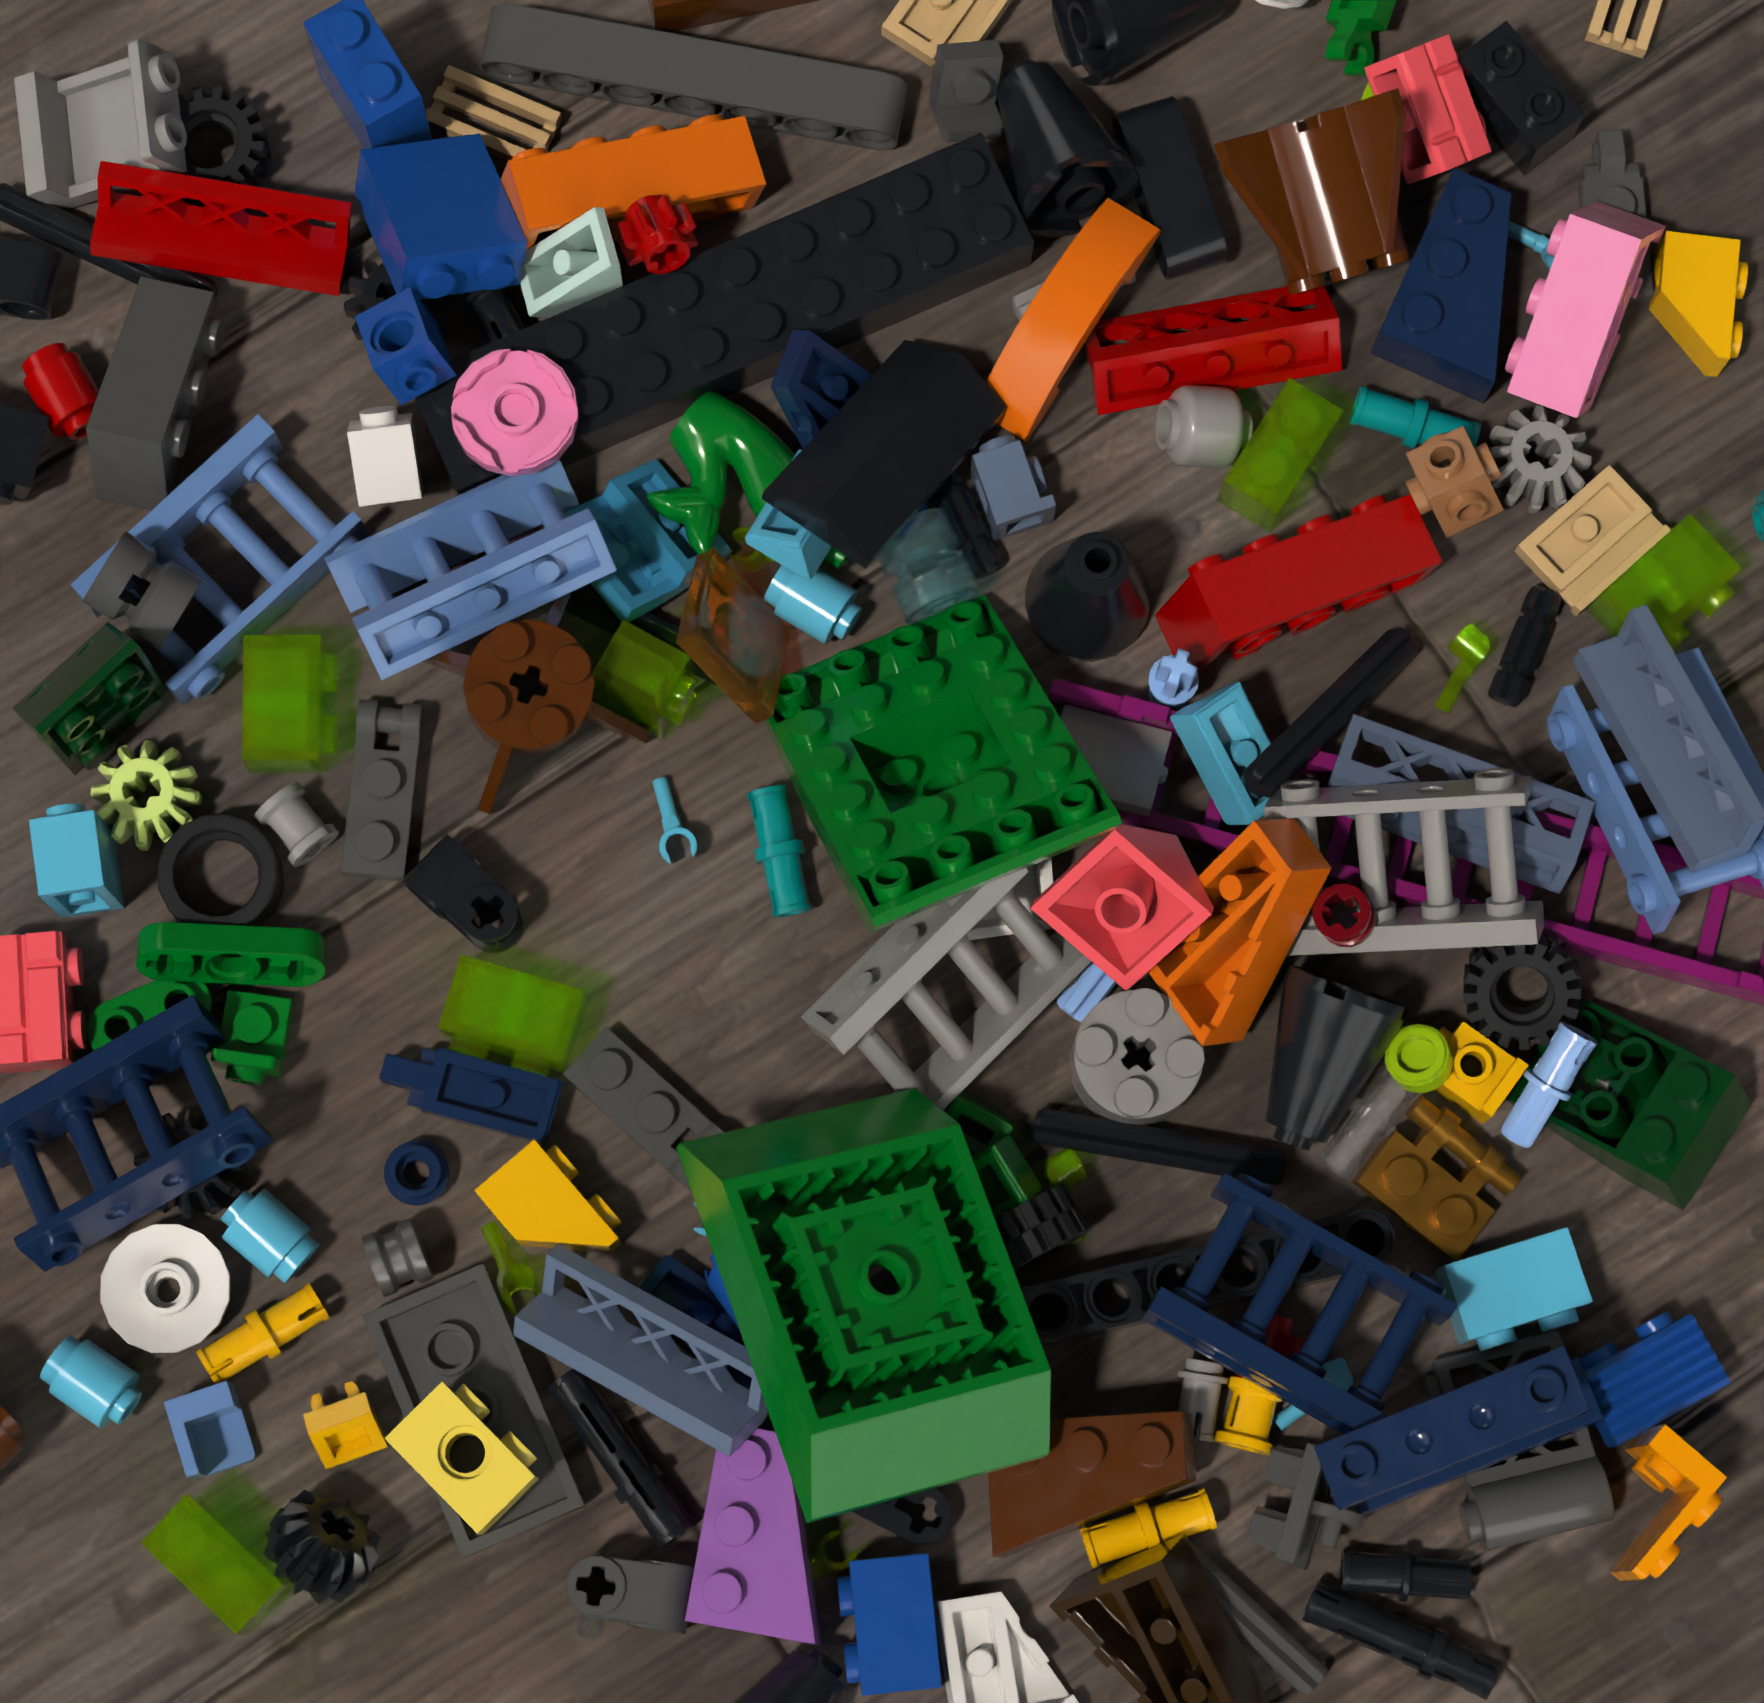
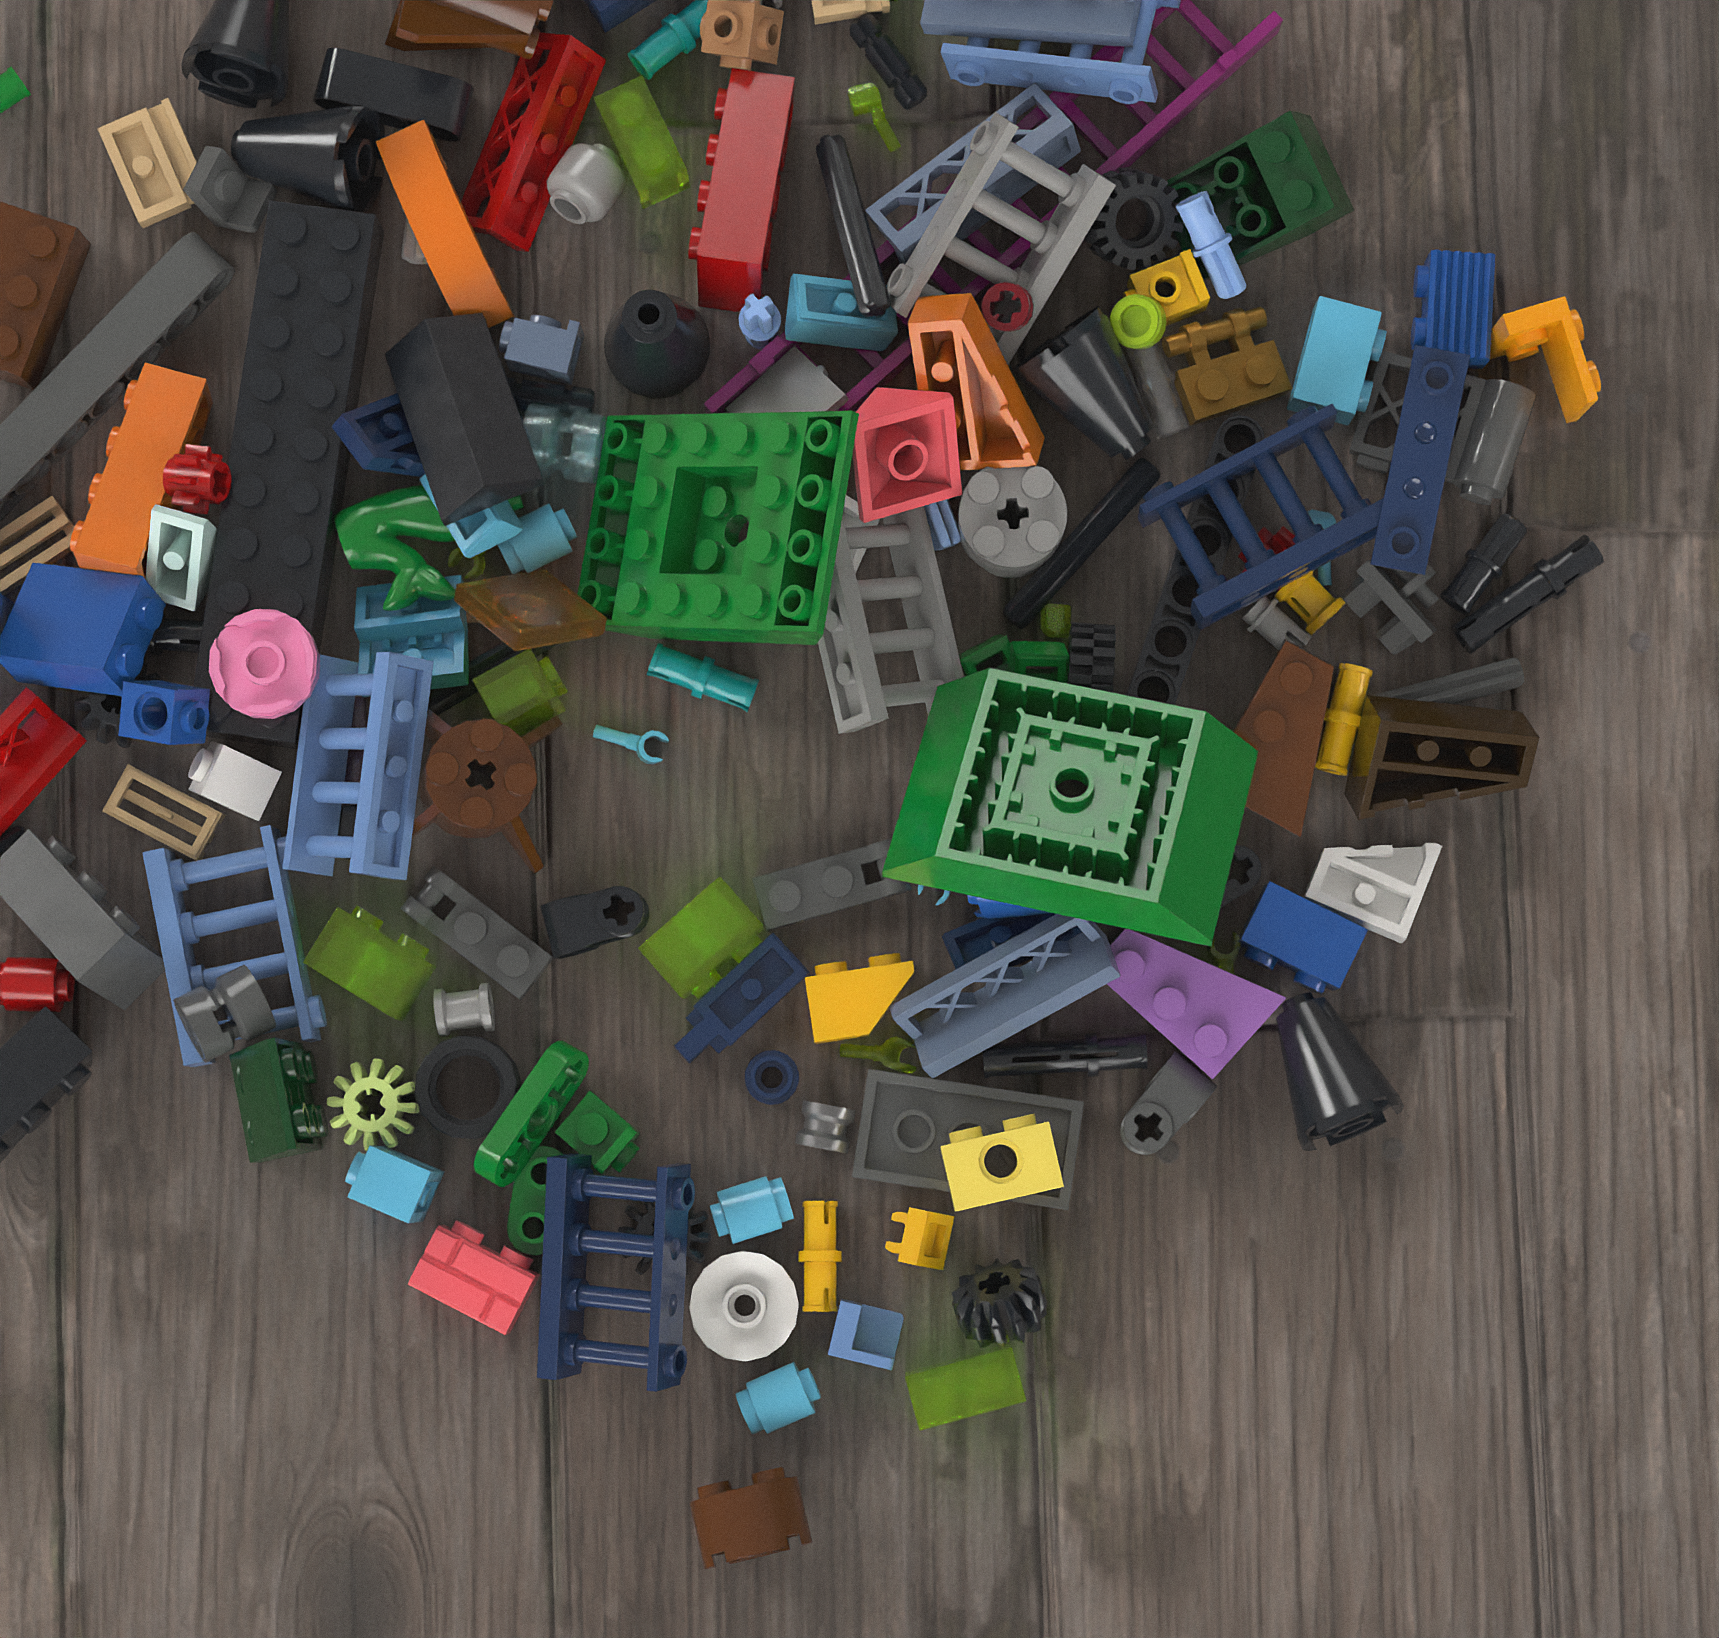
camera: 50 degrees left, 5 degrees up
(318, 464) = (204, 834): none -> tan tile

